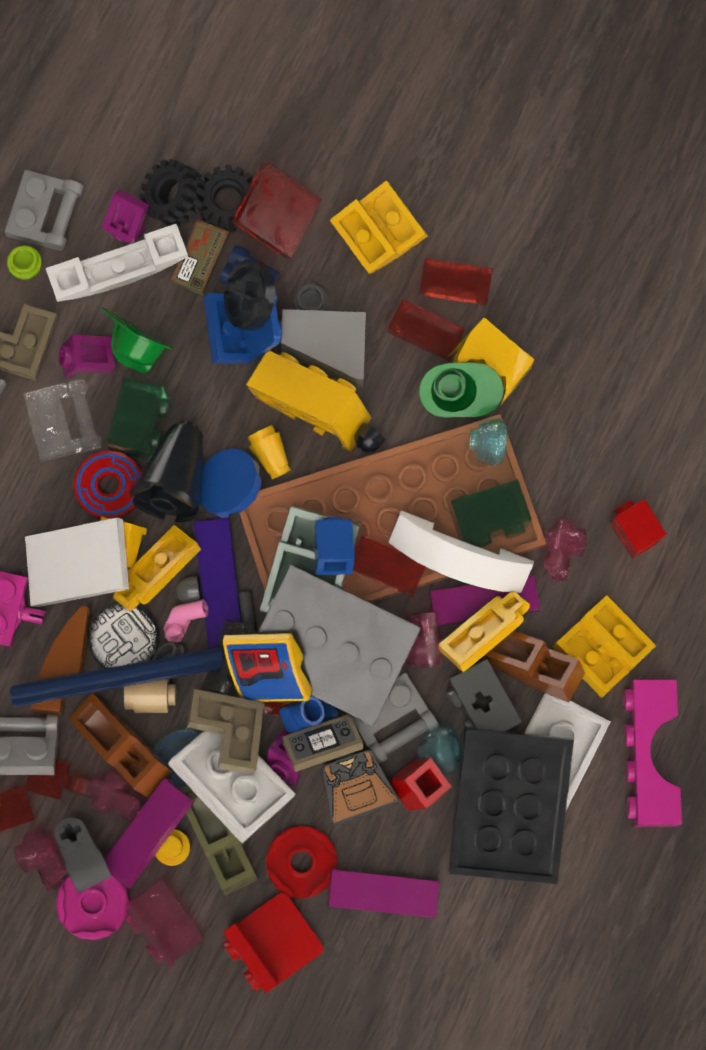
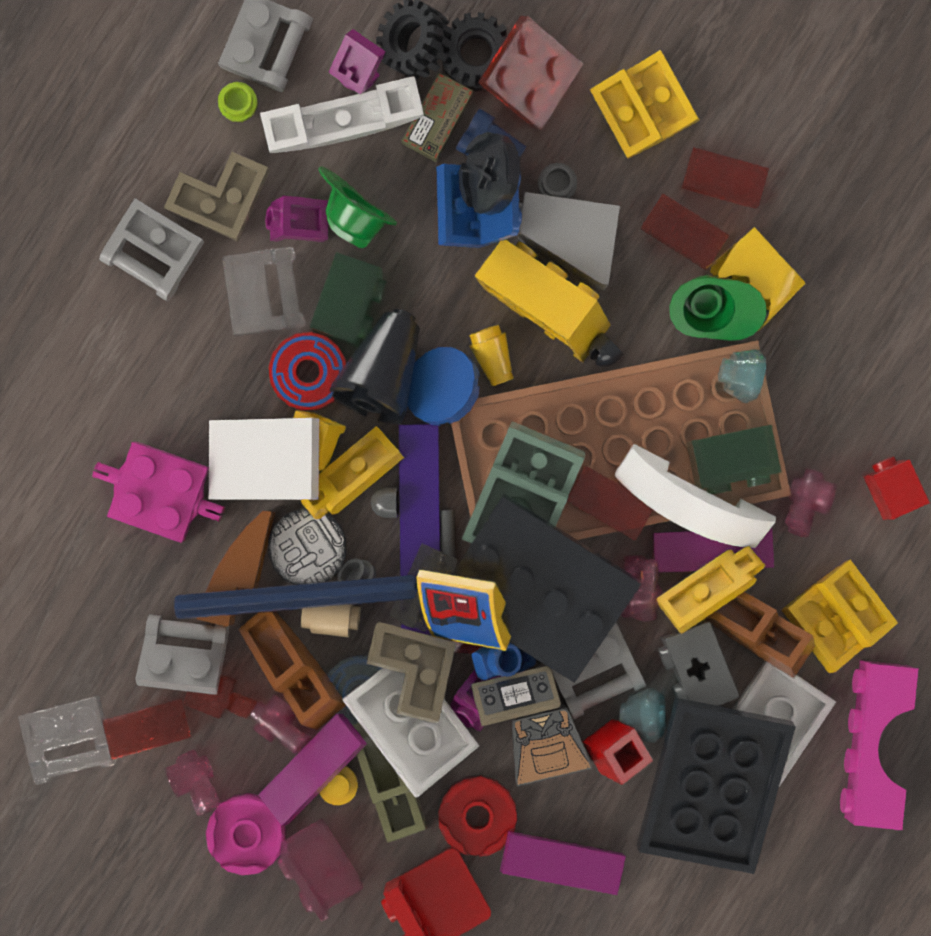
camera: 10 degrees right, 10 degrees up
(80, 857) = (239, 792): dark grey piece -> none
(180, 619) = (373, 532): bright pink arm -> none
(333, 546) = (554, 481): blue brick -> none

